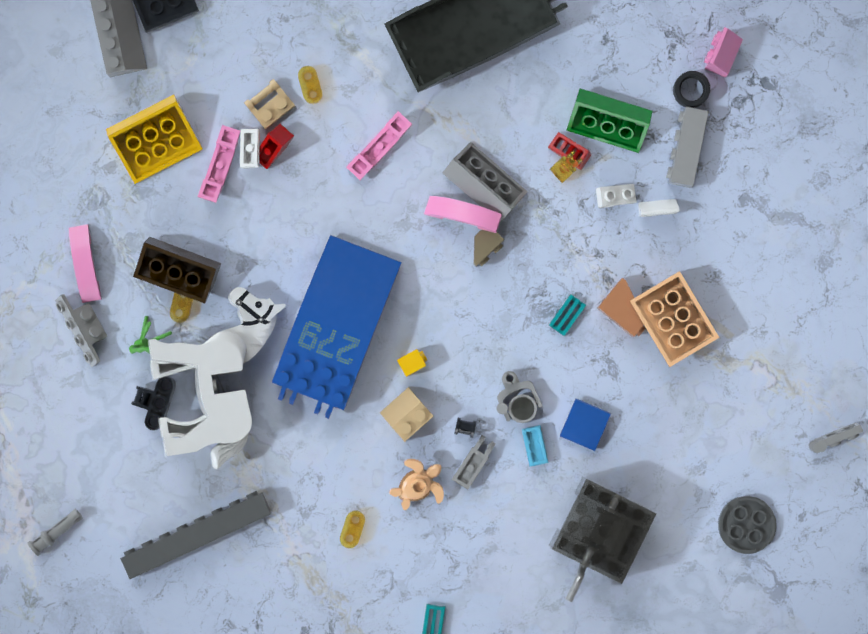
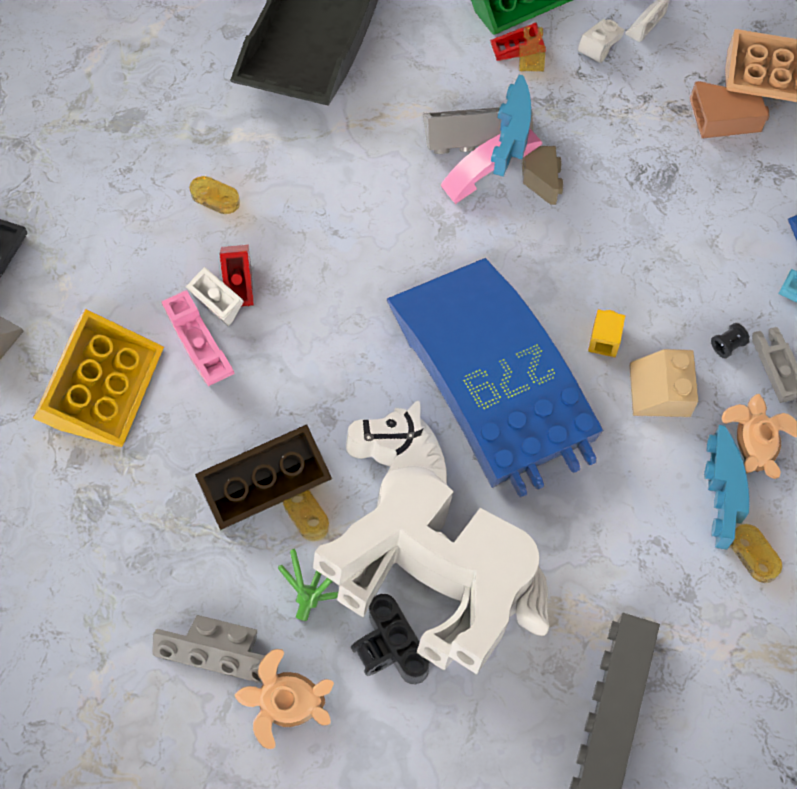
camera: 45 degrees left, 25 degrees down
(83, 263) = (150, 579): bright pink slope -> none
(87, 379) = (283, 699): none -> light nougat animal
(274, 108) = (200, 248): tan plate -> none
(379, 146) = (343, 181): bright pink slope -> none
(381, 485) = (730, 483): none -> dark azure slope
(491, 210) = (514, 127): none -> dark azure slope
(521, 407) = (754, 273): light grey piece -> none
(557, 328) = (695, 160): teal tile -> none

